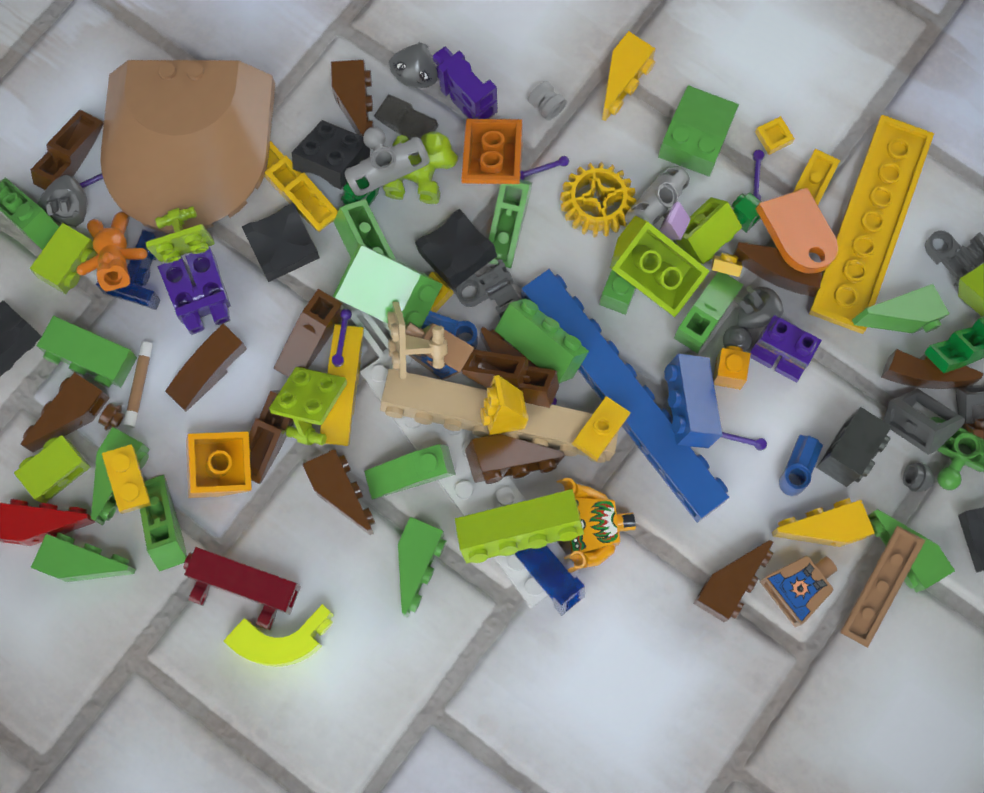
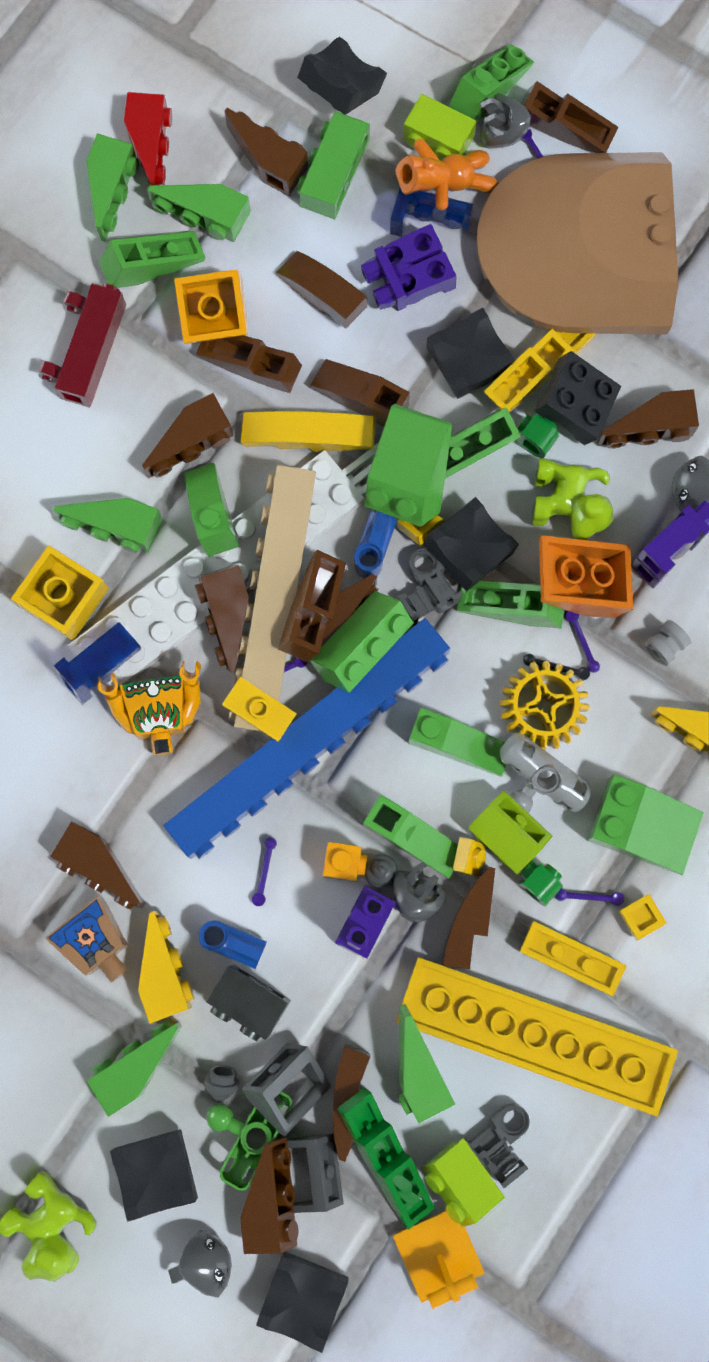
camera: 90 degrees right, 5 degrees up
(51, 469) = (205, 144): lime brick -> none
(111, 416) = (265, 198): reddish brown plate -> none
(126, 479) = (186, 212): yellow brick -> none
(138, 384) = (303, 222): medium nougat bar -> none
(182, 241) = (459, 242): lime plate -> none
(282, 651) = (18, 382): neon yellow arch -> none
(308, 401) = (282, 392): lime plate -> none
(337, 359) = (330, 422): dark purple hinge -> none
(372, 166) = (557, 440): light grey piece -> none
(403, 344) = (337, 487): tan plate -> none
(404, 119) = (633, 482): clear smoke slope -> none
(457, 351) = (338, 536): medium nougat torso -> none
(484, 609) = (60, 593): none -> yellow brick
(503, 408) = (267, 592): yellow slope -> none
(519, 527) = (144, 622): lime brick -> none
(556, 211) = (581, 673): none -> black hinge
(656, 266) = (456, 769): lime slope -> none
(675, 222) = (511, 790): lavender slope -> none
(693, 401) = (298, 814): brick -> none
(798, 230) = (515, 940): orange tile -> none
(882, 586) = (91, 1033): medium nougat tile -> none

